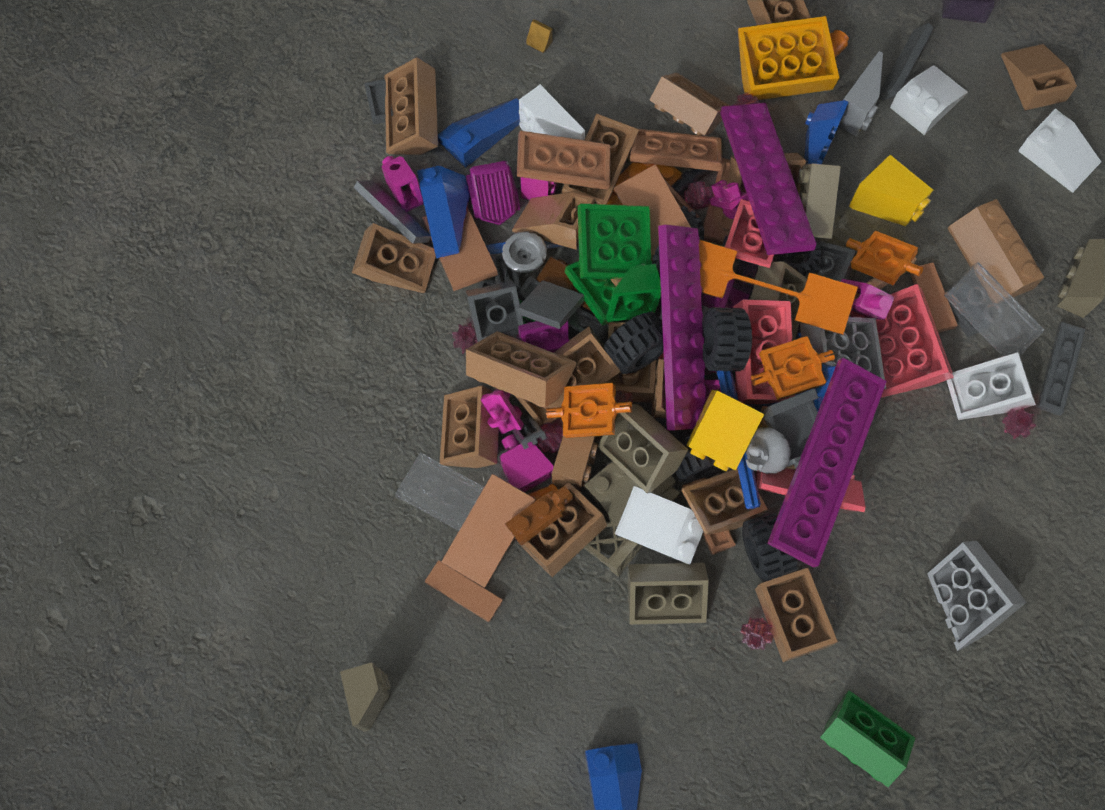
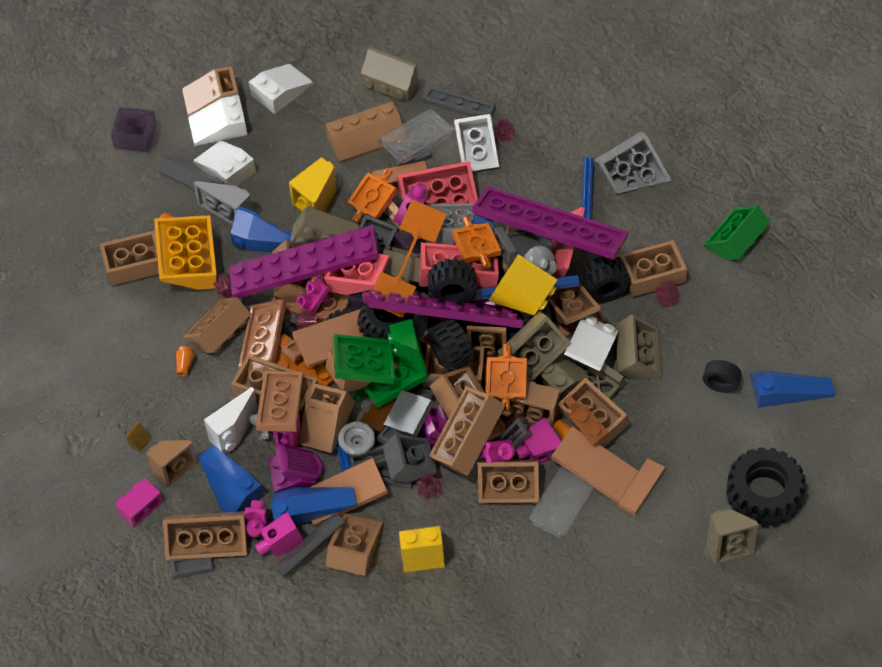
camera: 85 degrees left, 15 degrees down
(381, 327) = (421, 549): none -> yellow slope
(410, 751) = (770, 465): none -> black tyre
(424, 155) = (256, 518): none -> dark pink hips
(454, 42) = (139, 502): none -> dark pink brick
(497, 62) = (171, 459): none -> medium nougat slope
(620, 701) = (719, 383): none -> black tyre
(641, 73) = (184, 359): none -> orange cone
(907, 532) = (587, 186): none -> blue axle
(995, 88) = (218, 121): none -> white slope

